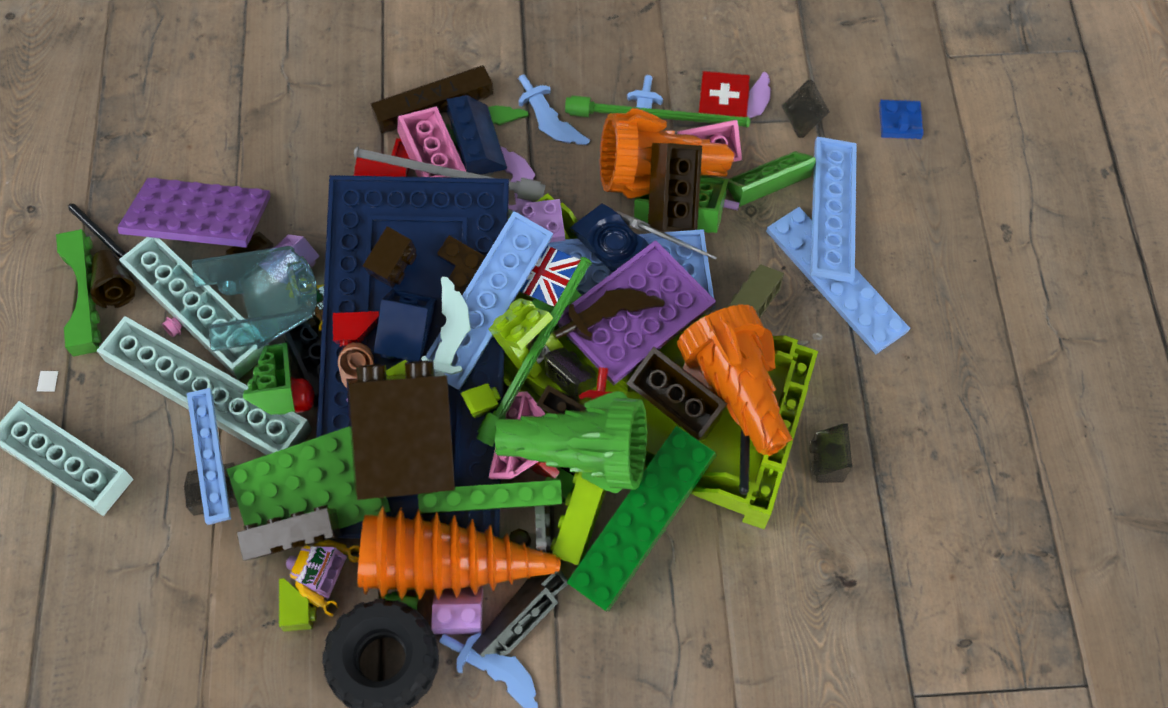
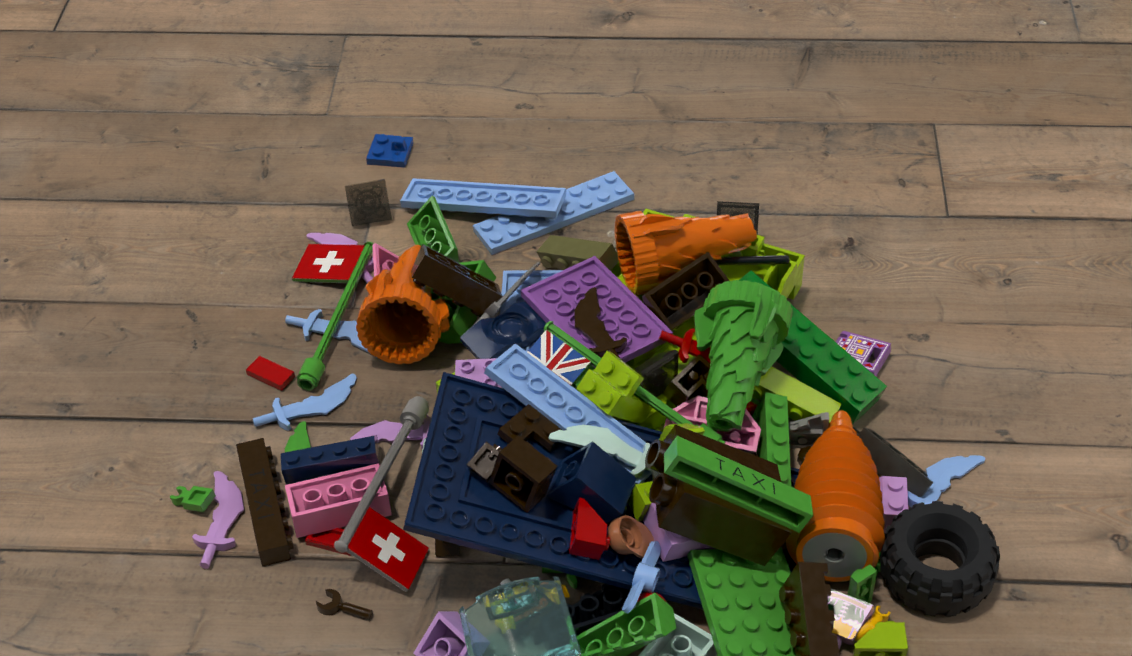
camera: 80 degrees left, 20 degrees down
(316, 381) = (645, 576): none -> light blue piece
(332, 171) = (336, 604): none -> dark brown piece
(347, 583) = (862, 583): none -> bright green plate
(378, 437) = (737, 484): none -> bright green brick
(410, 228) = (484, 461): none -> dark brown bracket
(418, 77) = (223, 518): none -> lavender sword
(433, 52) = (196, 499): none -> bright green plate
(581, 77) = (270, 373): none -> red tile
(666, 582) = (863, 347): none -> medium lavender container

